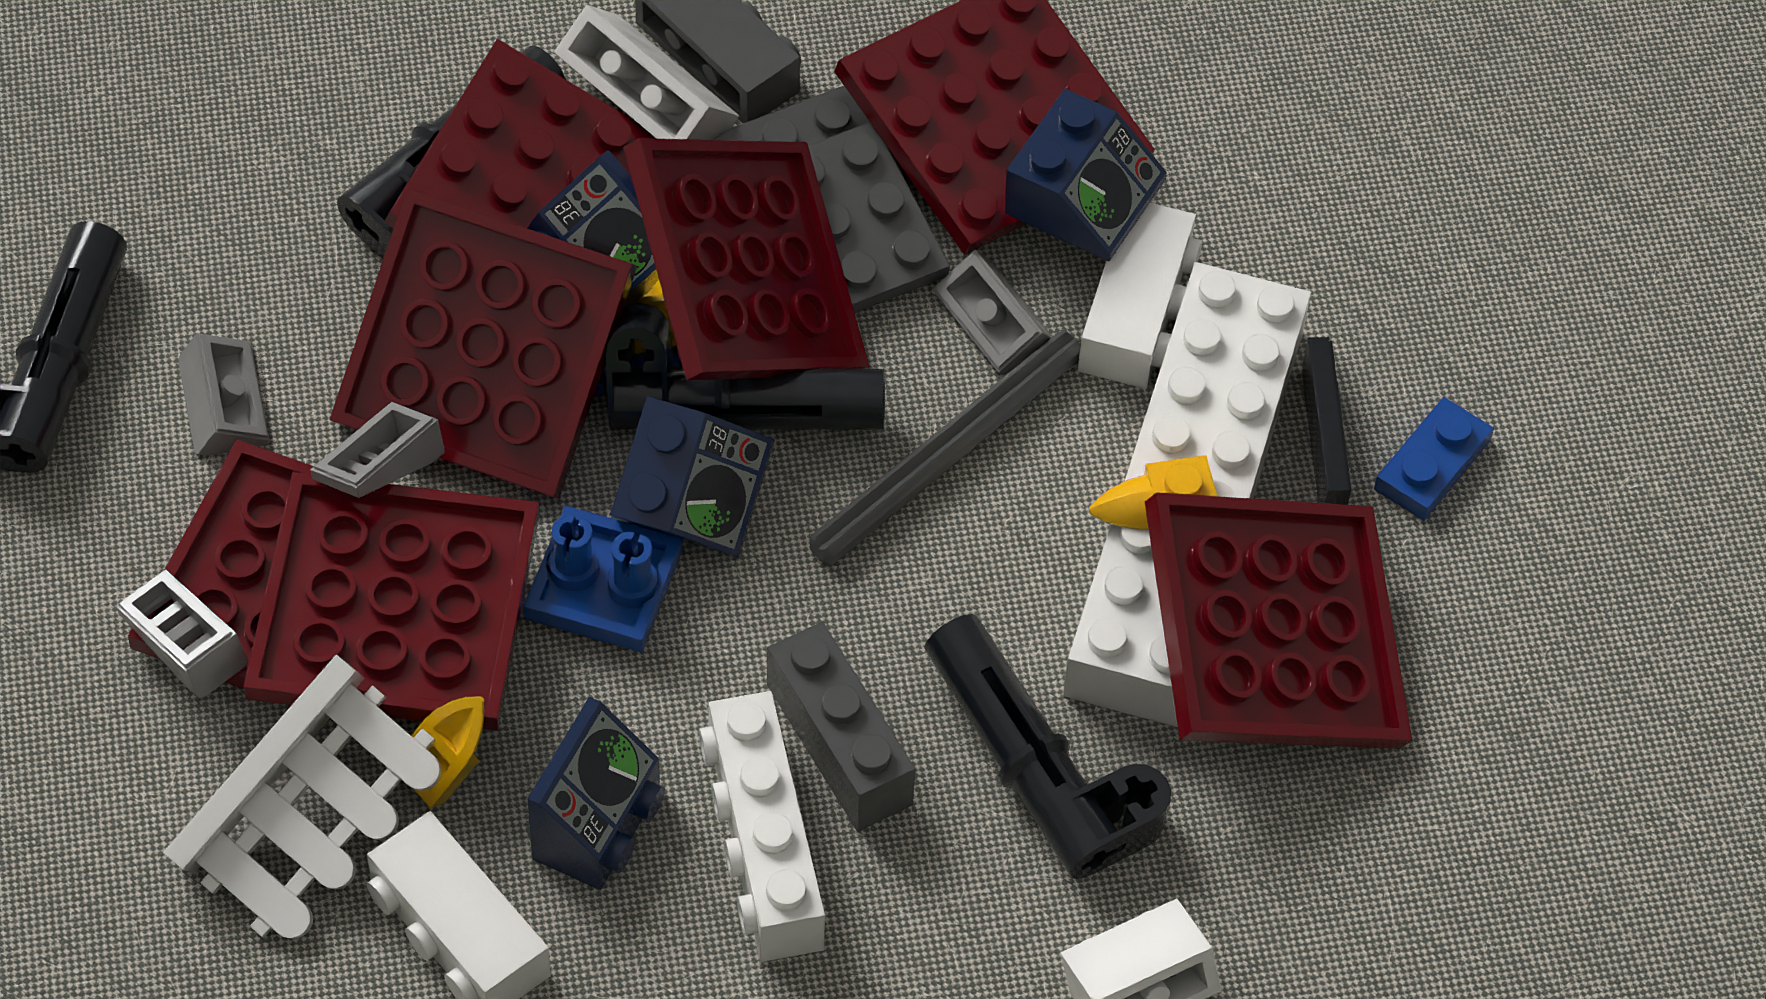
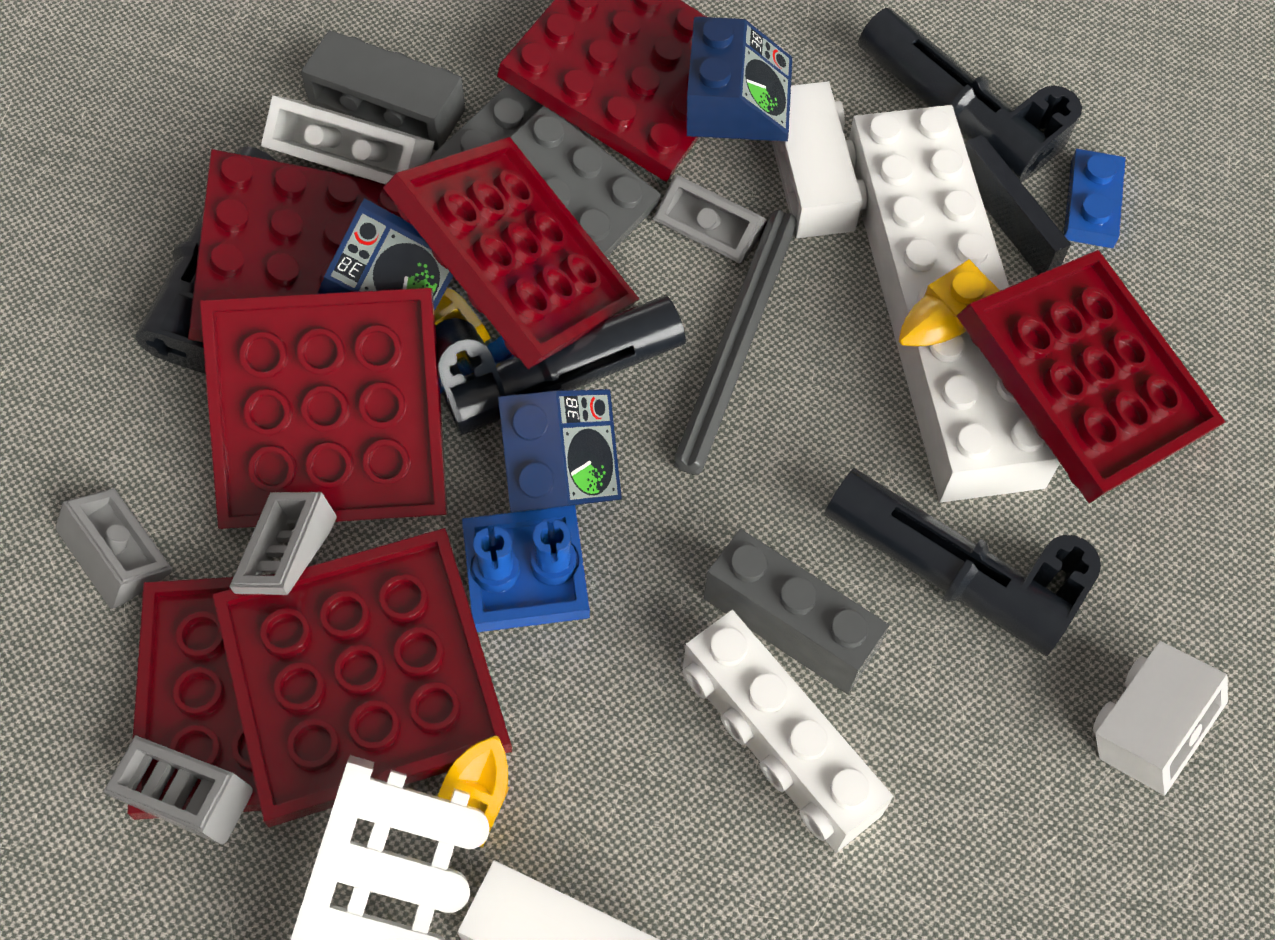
camera: 25 degrees left, 5 degrees up
(593, 798) = (632, 777): slope -> none
(1379, 358) = (977, 109): none -> black piece

